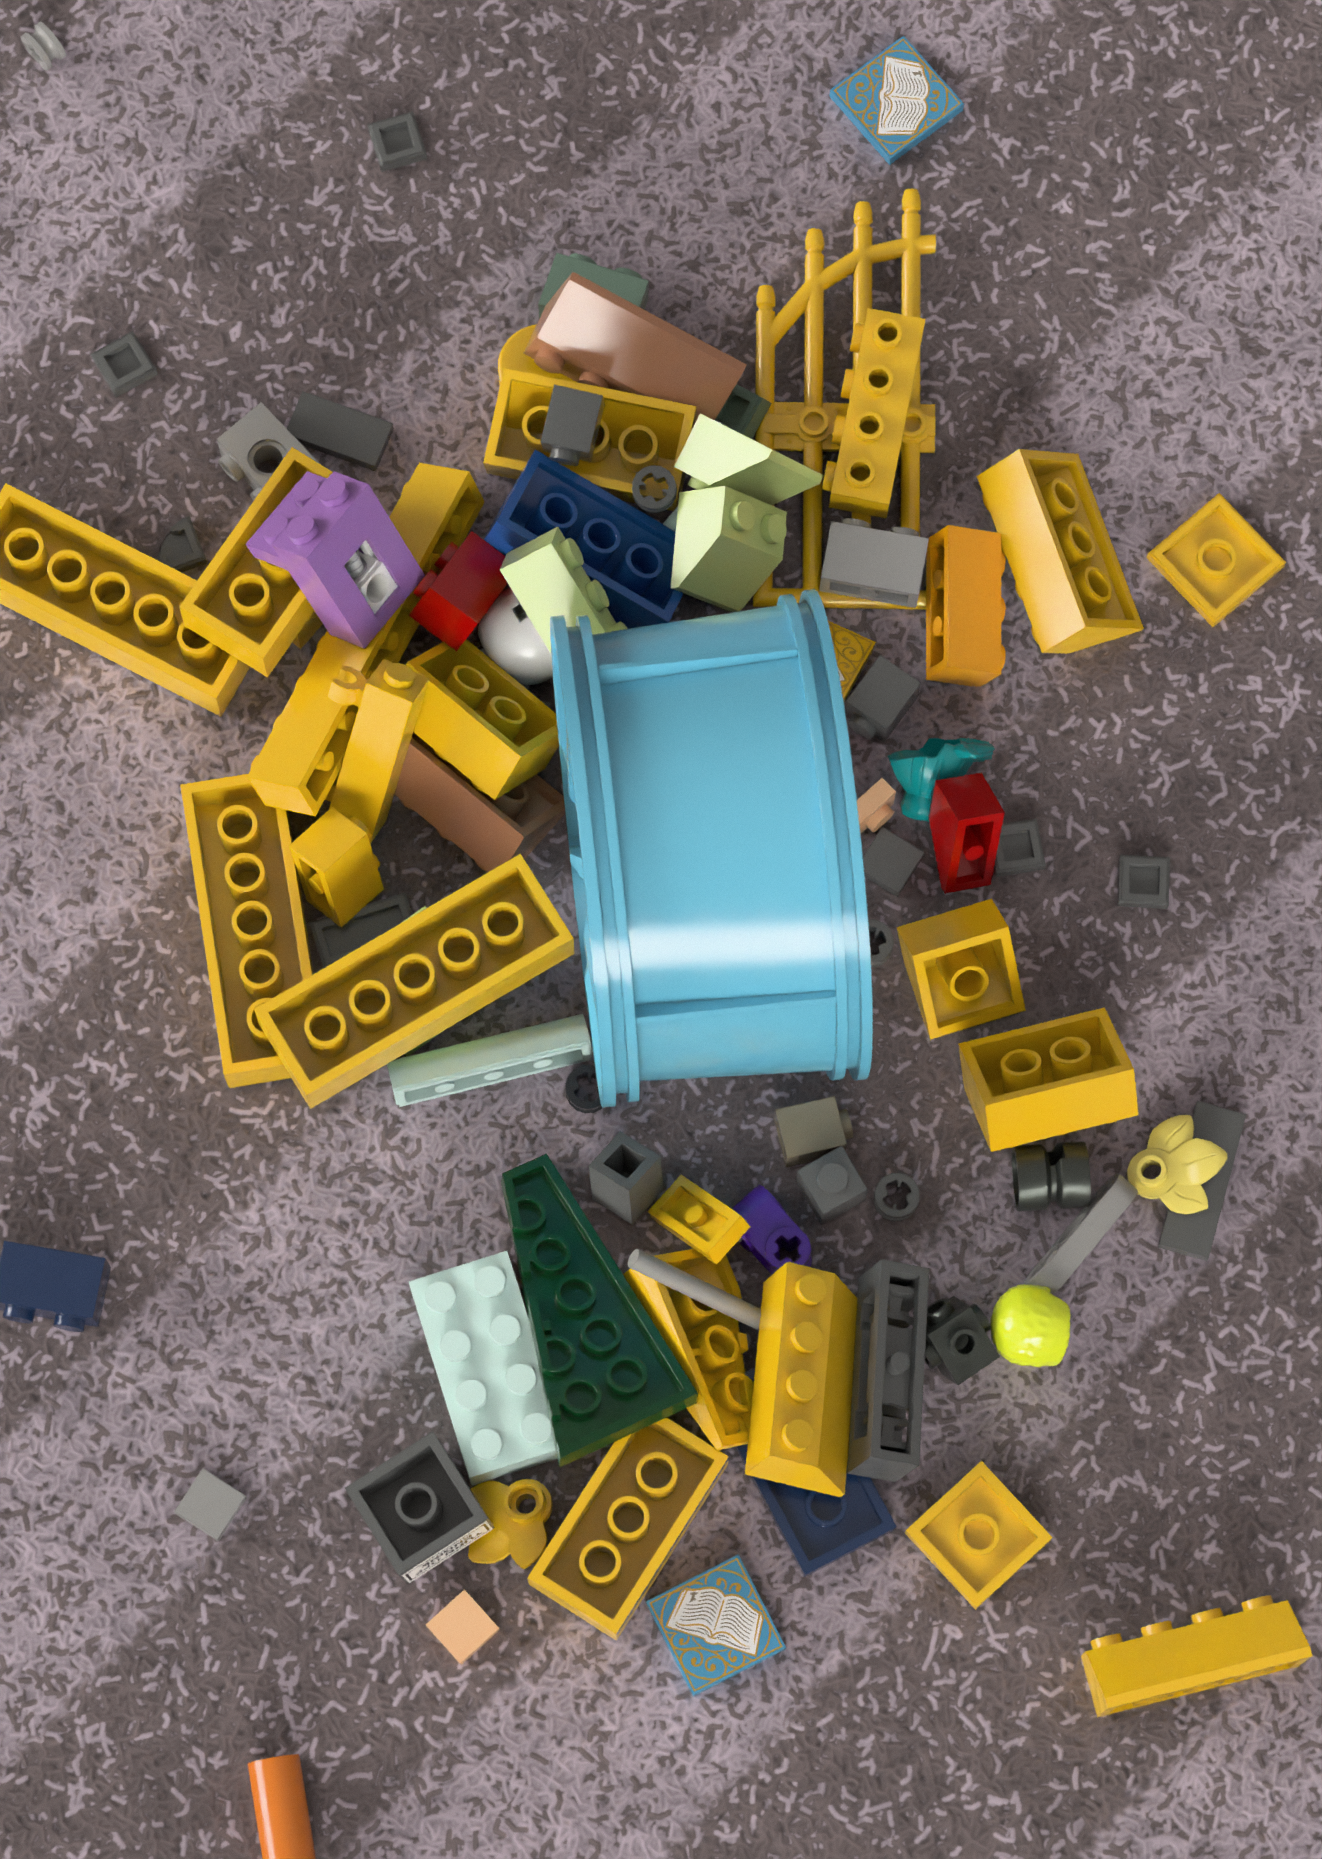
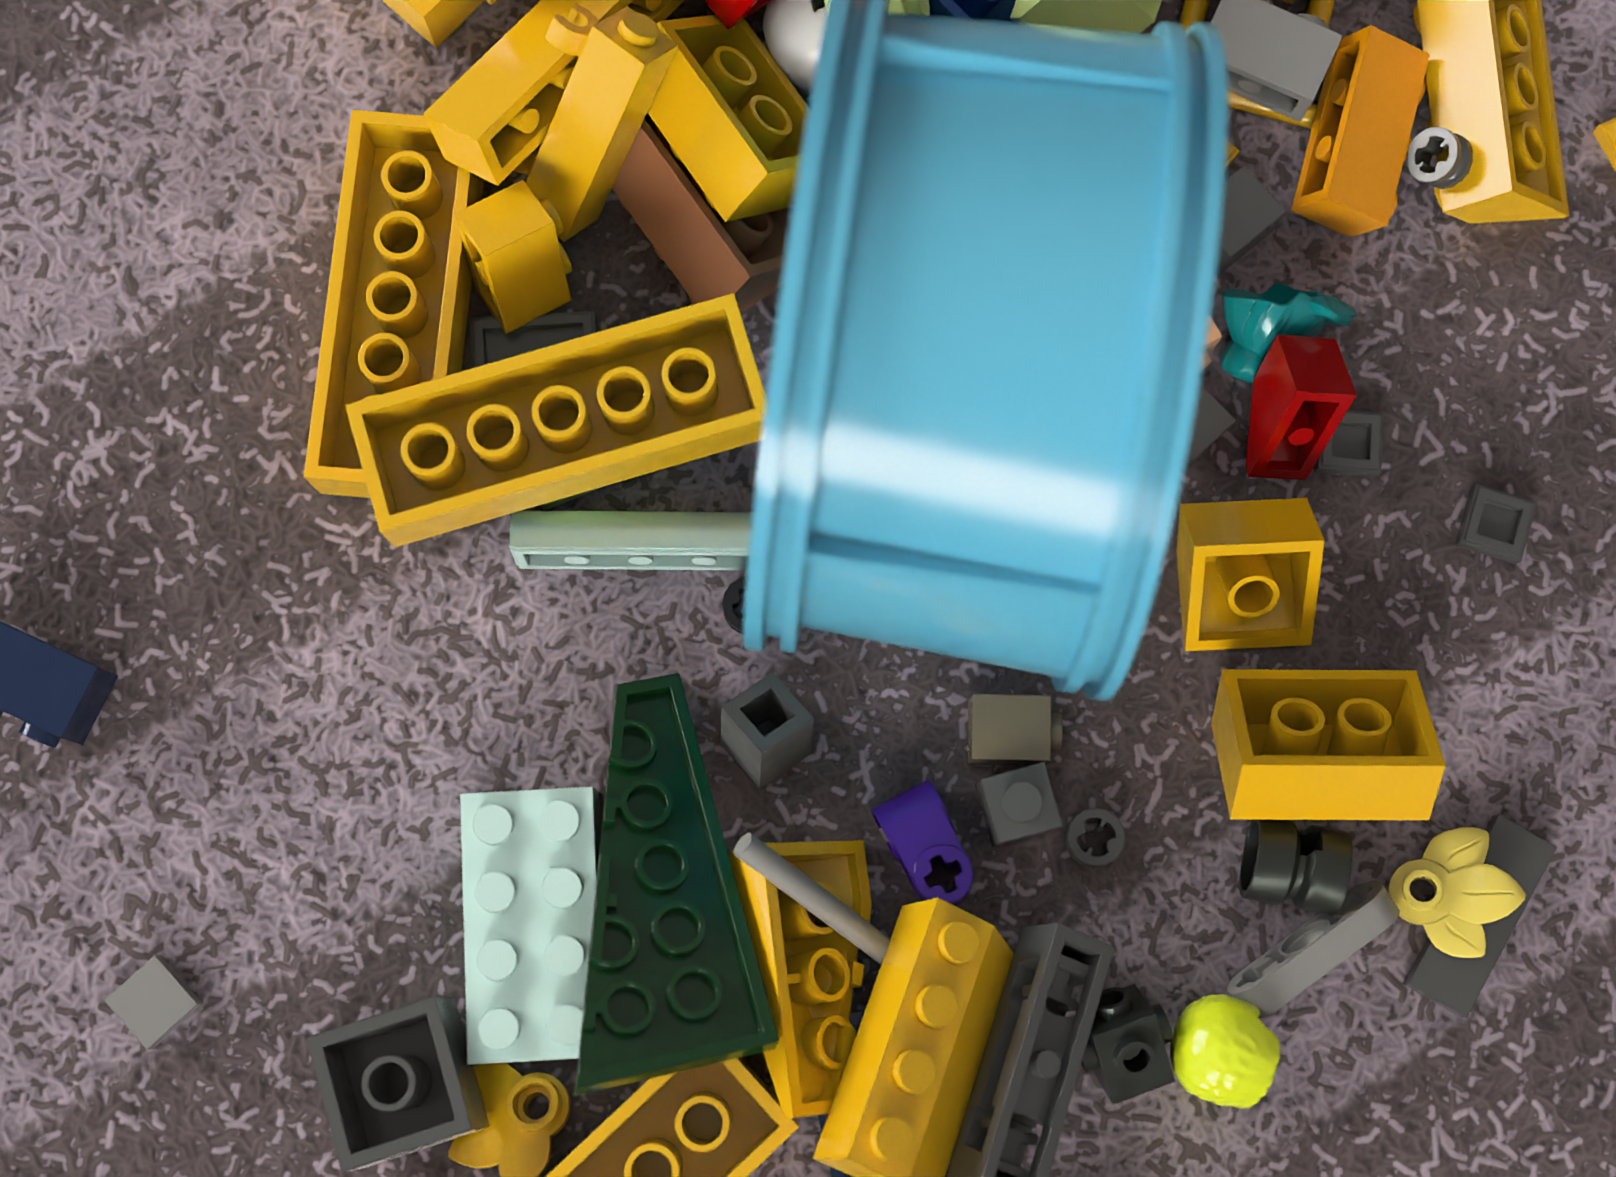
camera: 15 degrees right, 5 degrees up
(699, 1219) = (843, 806): yellow plate -> none
(1022, 600) = (1433, 142): none -> dark grey bush

